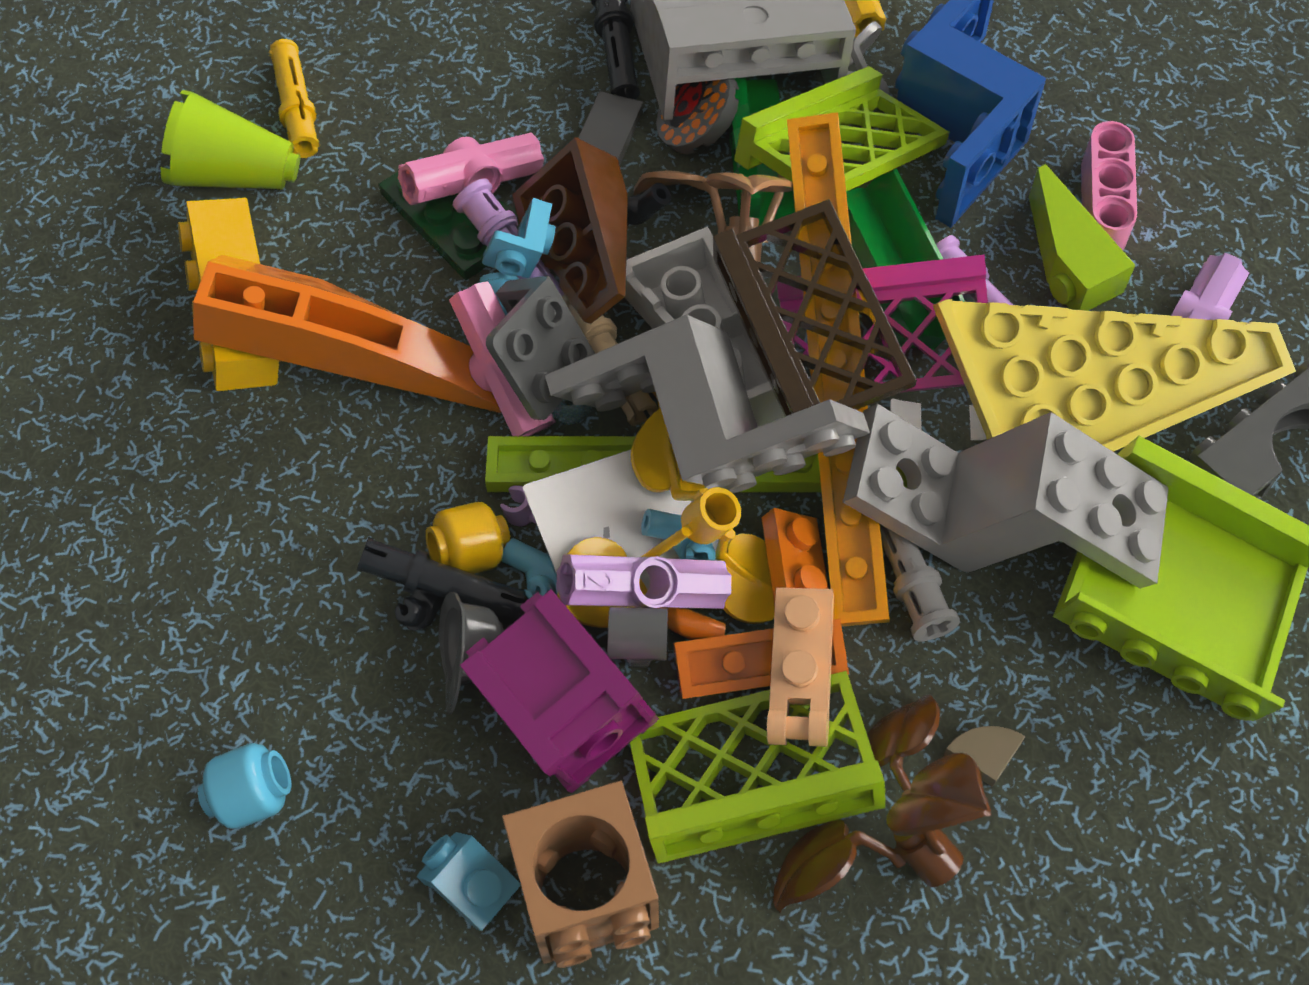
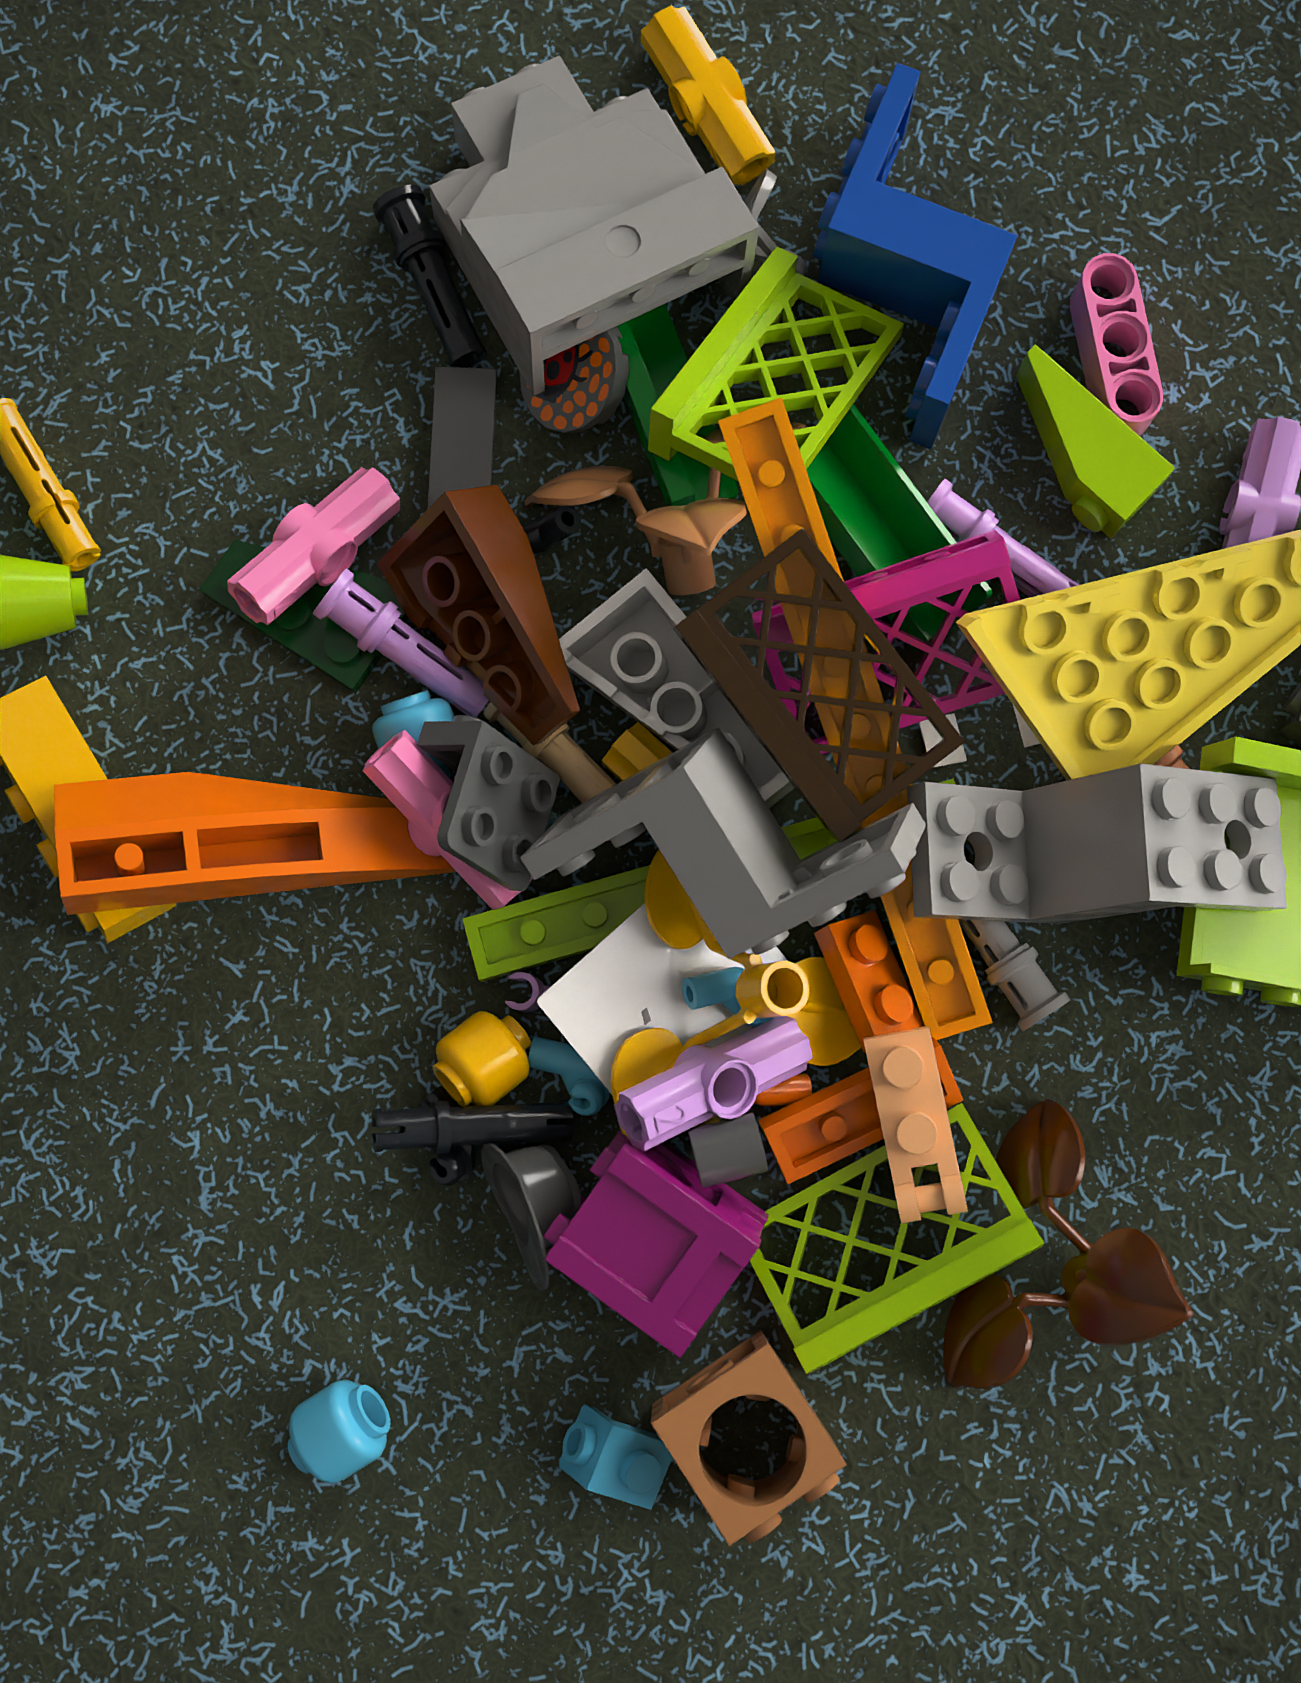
camera: 15 degrees left, 20 degrees up
(521, 253) = (433, 646): medium azure bracket -> none
(989, 747) = (1132, 1143): dark tan tile -> none

